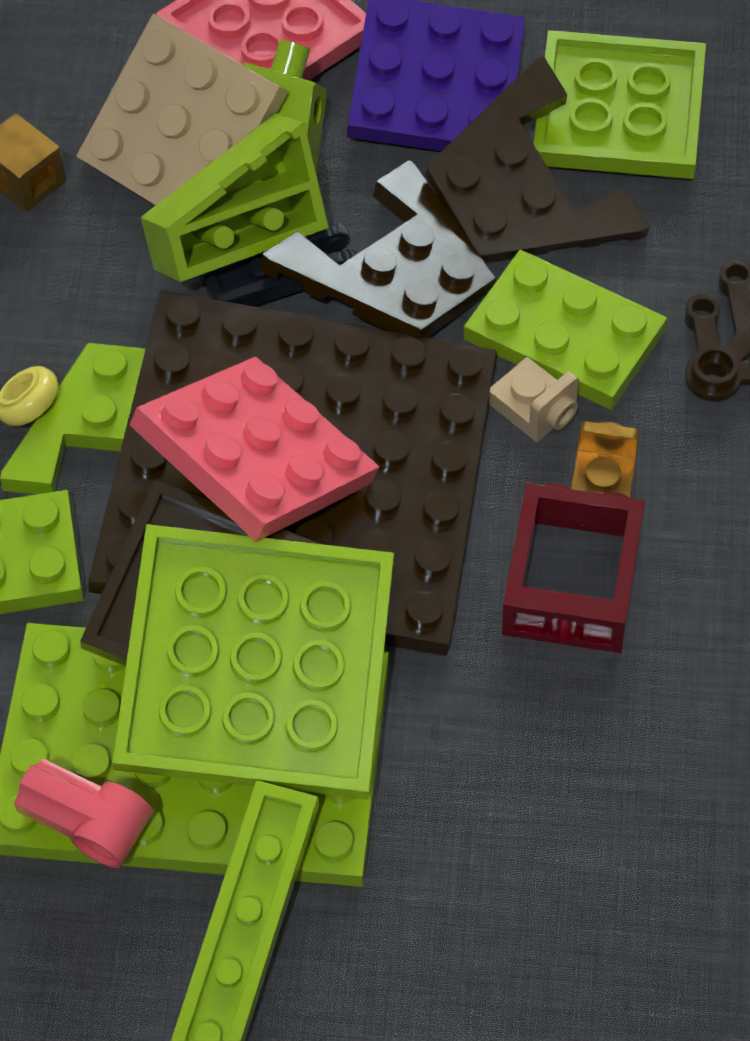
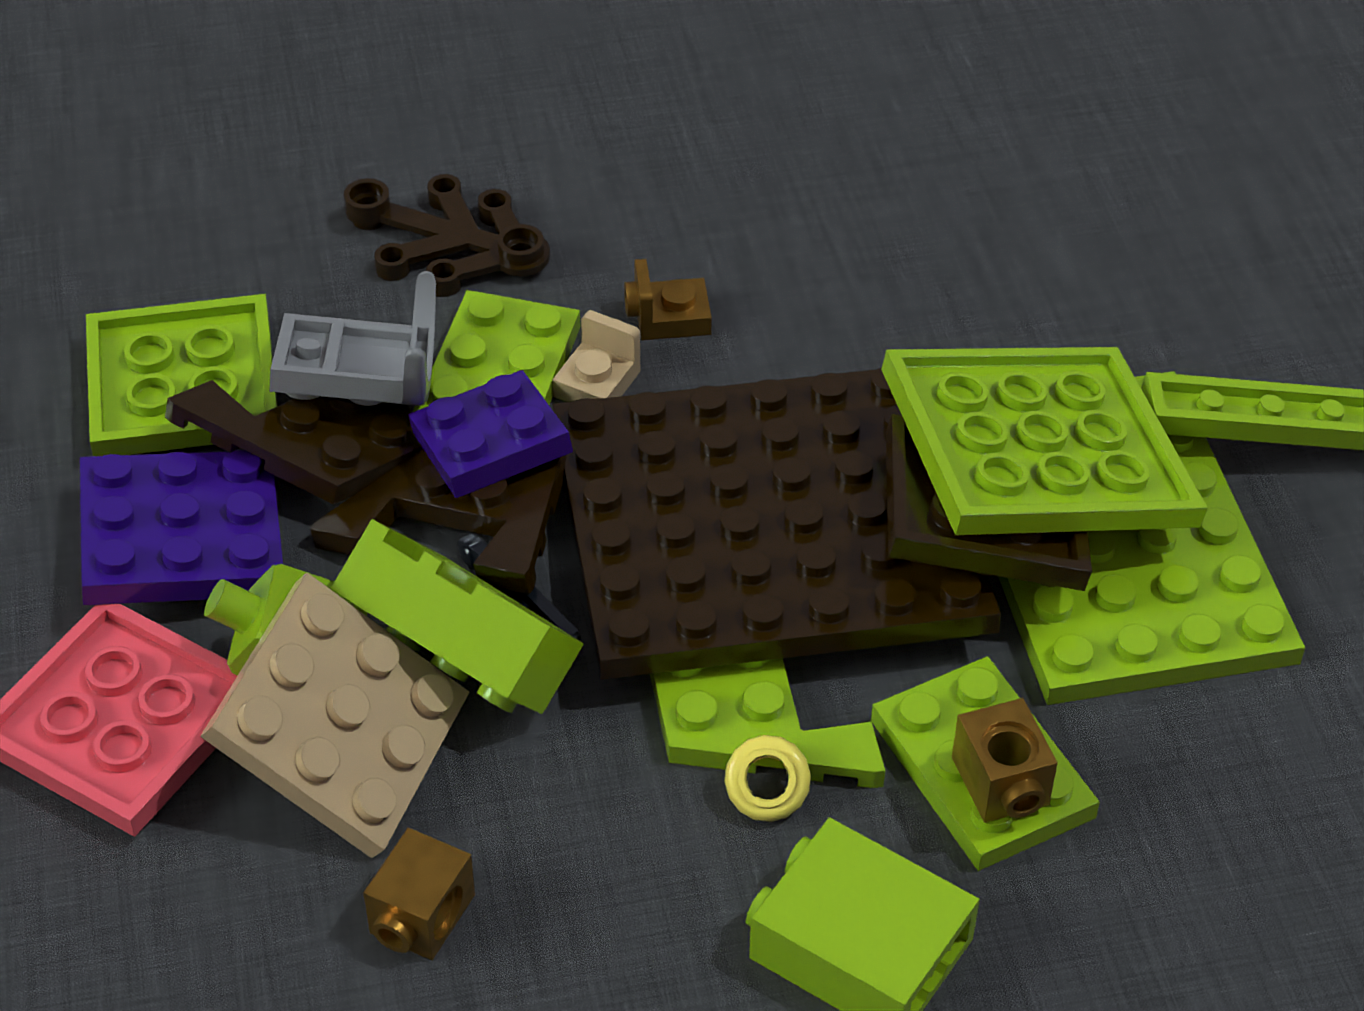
camera: 110 degrees left, 10 degrees down
(97, 819) = (1251, 536): coral piece -> none
(254, 447) = (808, 483): coral plate -> none
(442, 271) = (490, 433): none -> dark purple plate
(559, 195) = (358, 357): none -> light grey piece
(567, 616) = (794, 329): dark red window -> none

